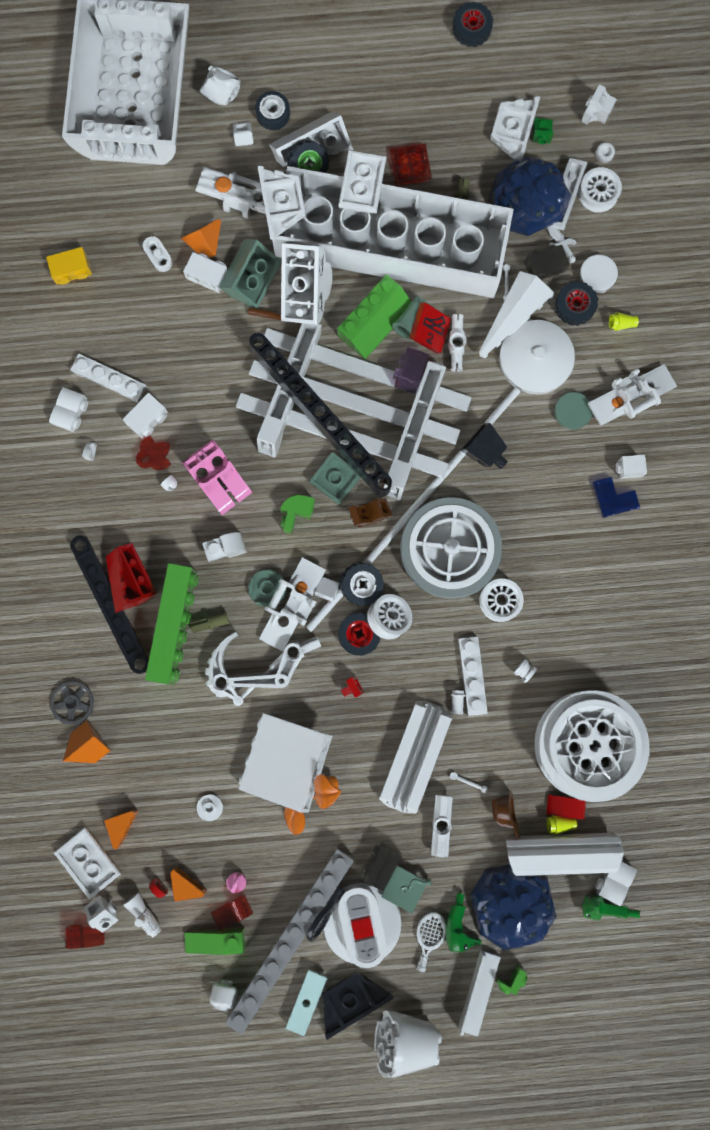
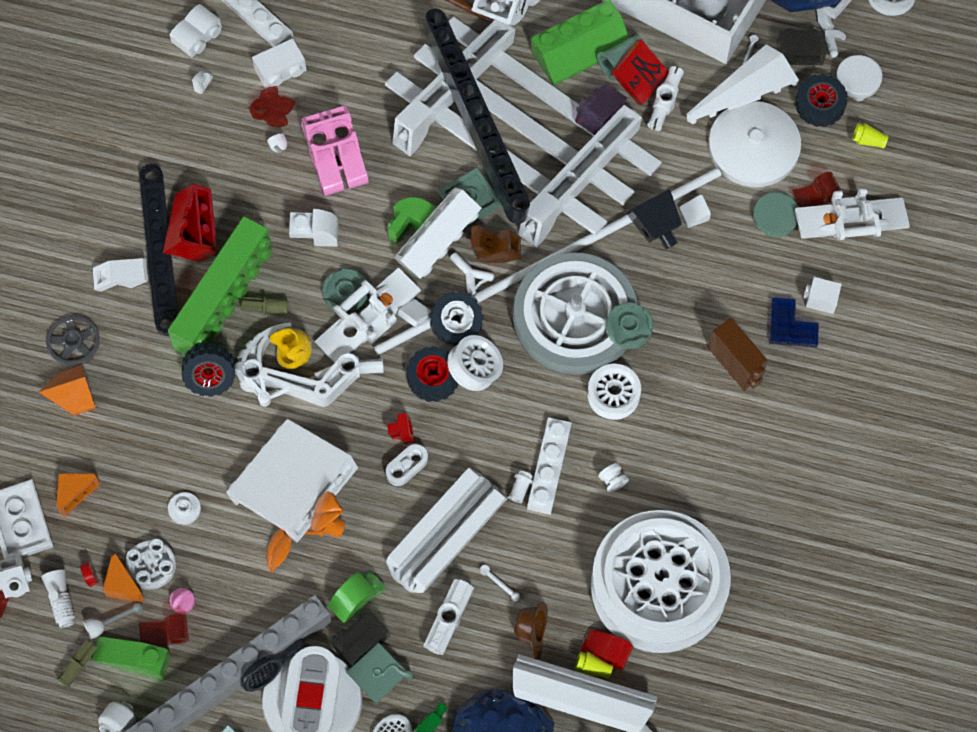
camera: 20 degrees right, 15 degrees down
(87, 637) = (120, 272): none -> white slope
(176, 962) = (76, 663): none -> olive axle
(178, 927) = (96, 626): none -> hinge
(187, 695) = (208, 369): none -> black wheel
(201, 861) = (151, 564): none -> white tile
(245, 652) = (292, 347): none -> yellow cap
(323, 520) = (437, 233): none -> white brick
(358, 540) = (471, 273): none -> white piece
(366, 715) = (405, 465): none -> white plate
(367, 833) = (354, 595): none -> bright green brick
(497, 547) = (634, 330): none -> sand green tile
(511, 430) = (695, 211): none -> white slope
(587, 540) = (738, 354): none -> reddish brown brick
(598, 381) = (818, 193): none -> clear red panel

